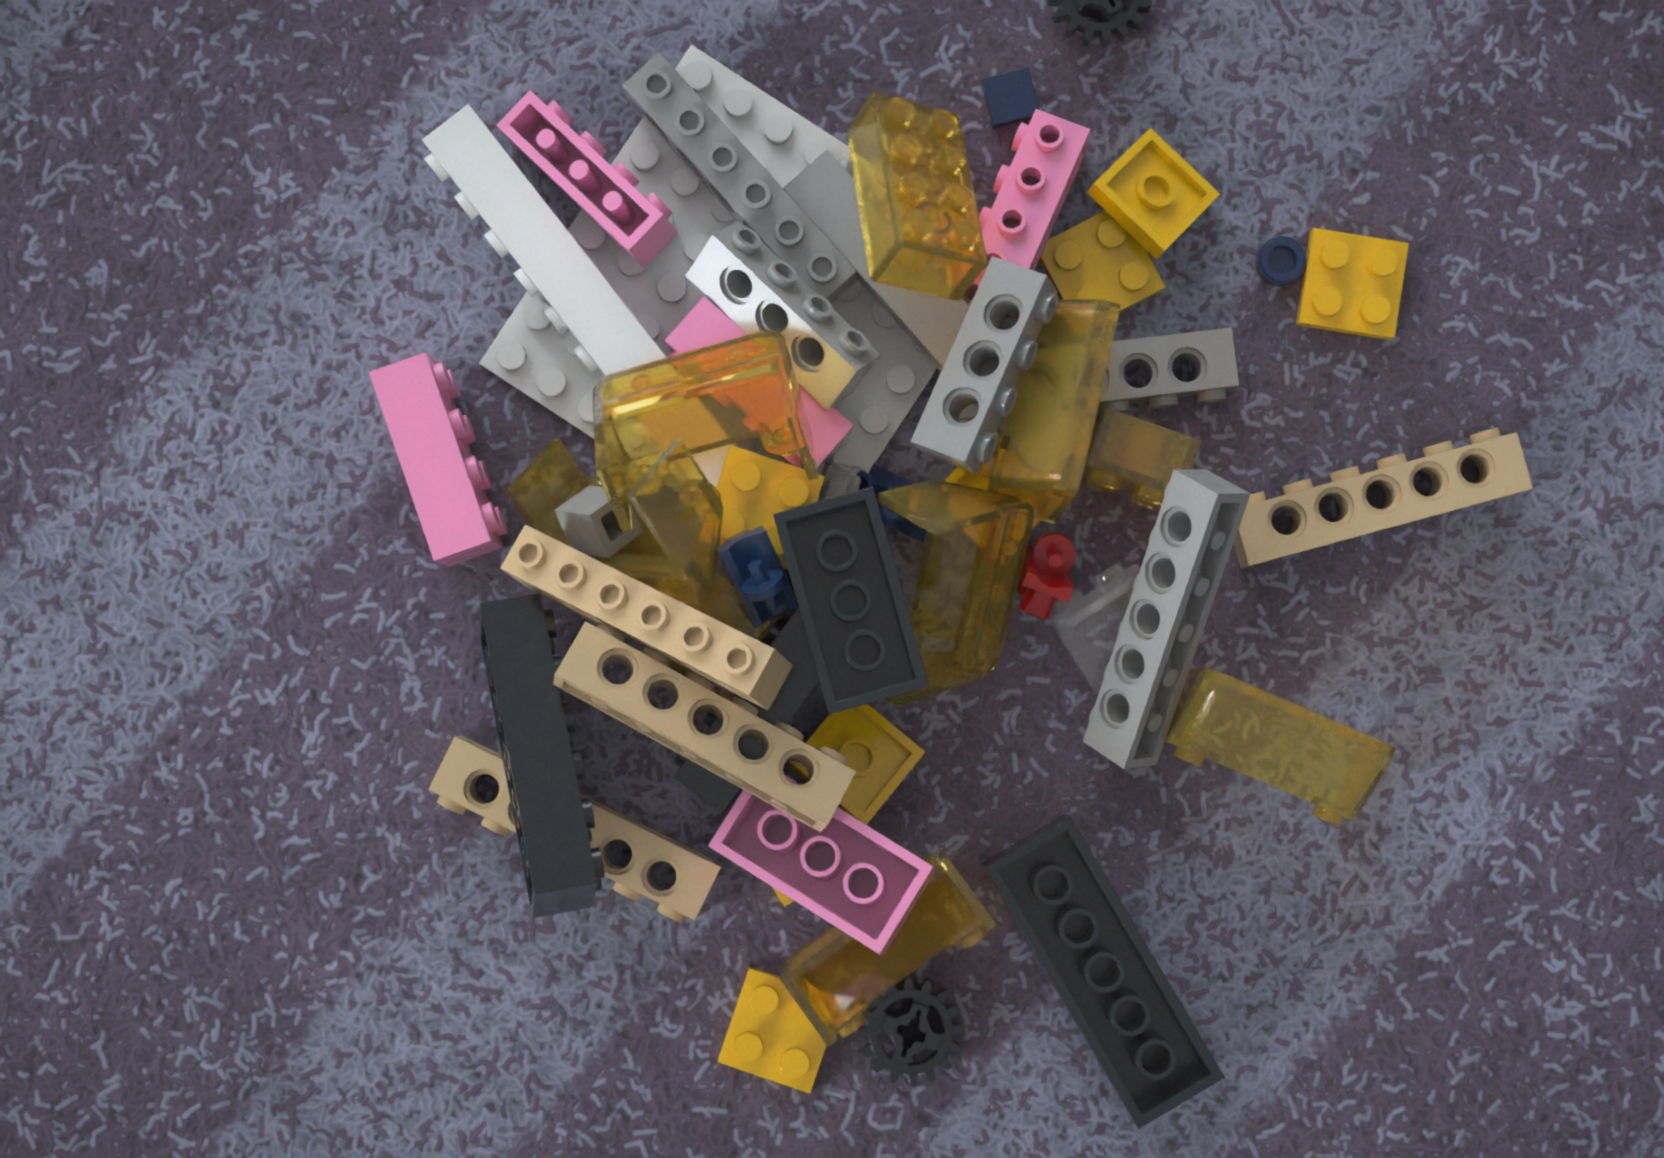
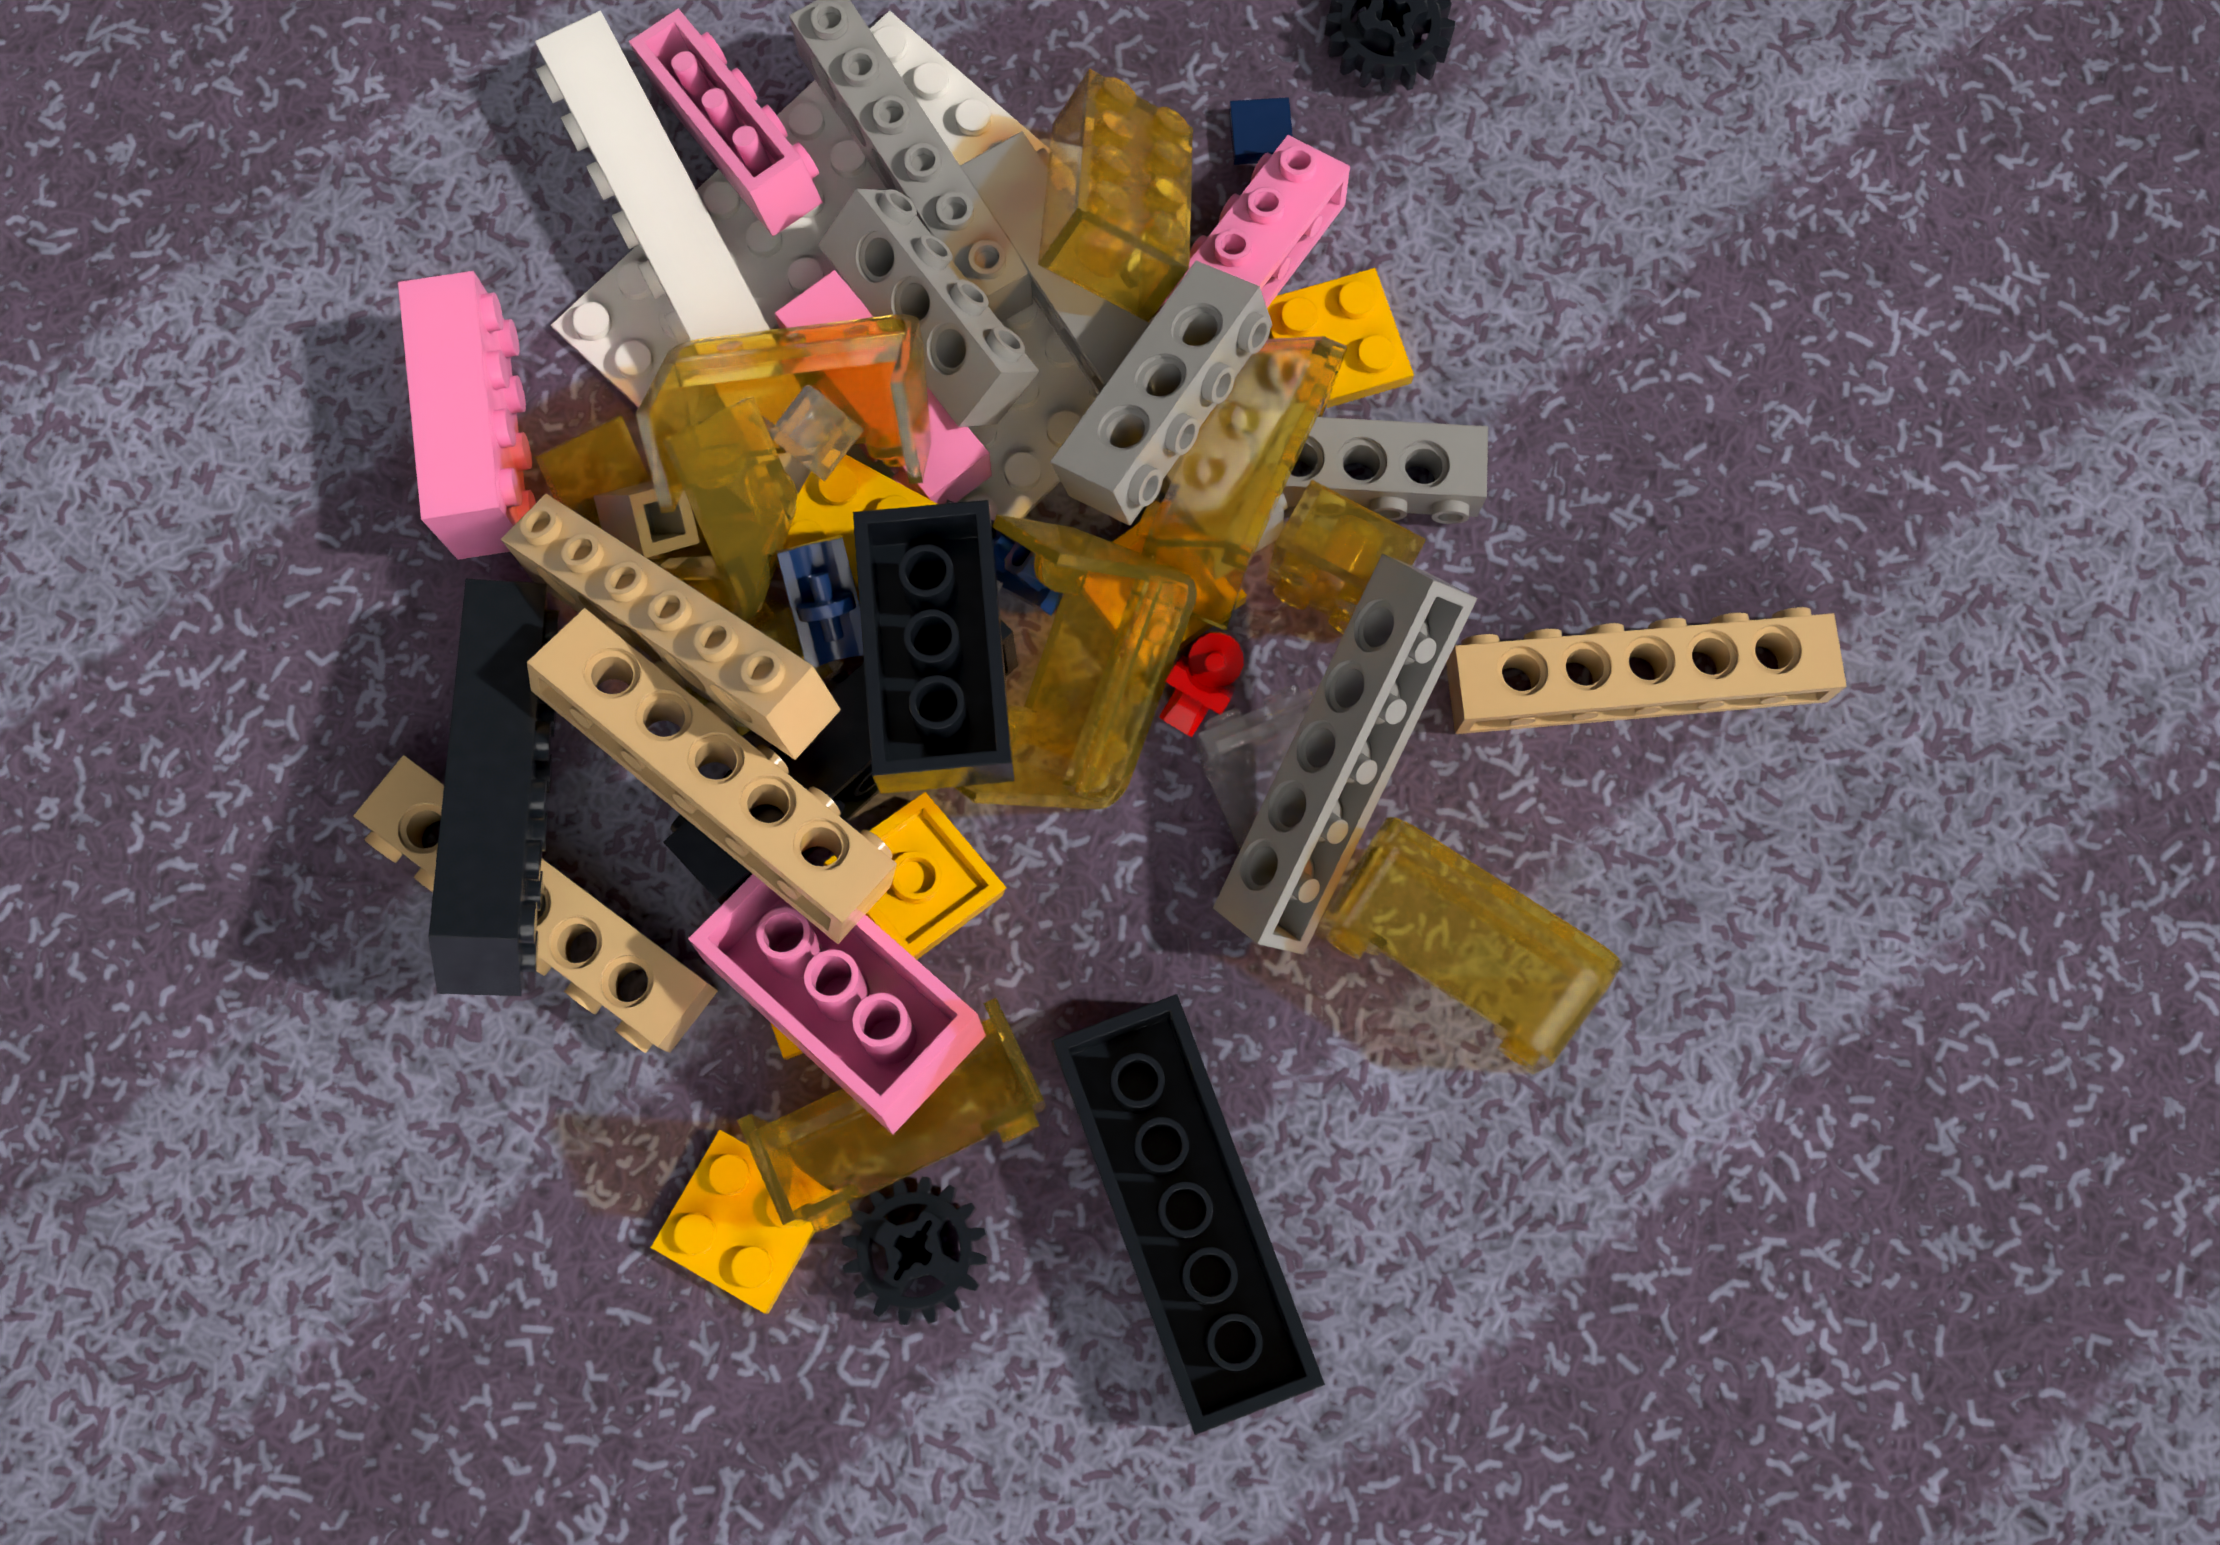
camera: 10 degrees right, 10 degrees down
(723, 444) = (814, 432): none -> clear panel
(1153, 193) = (1415, 259): yellow plate -> none
(1280, 261) = (1562, 371): dark blue tile -> none
(1352, 284) = (1648, 413): yellow plate -> none

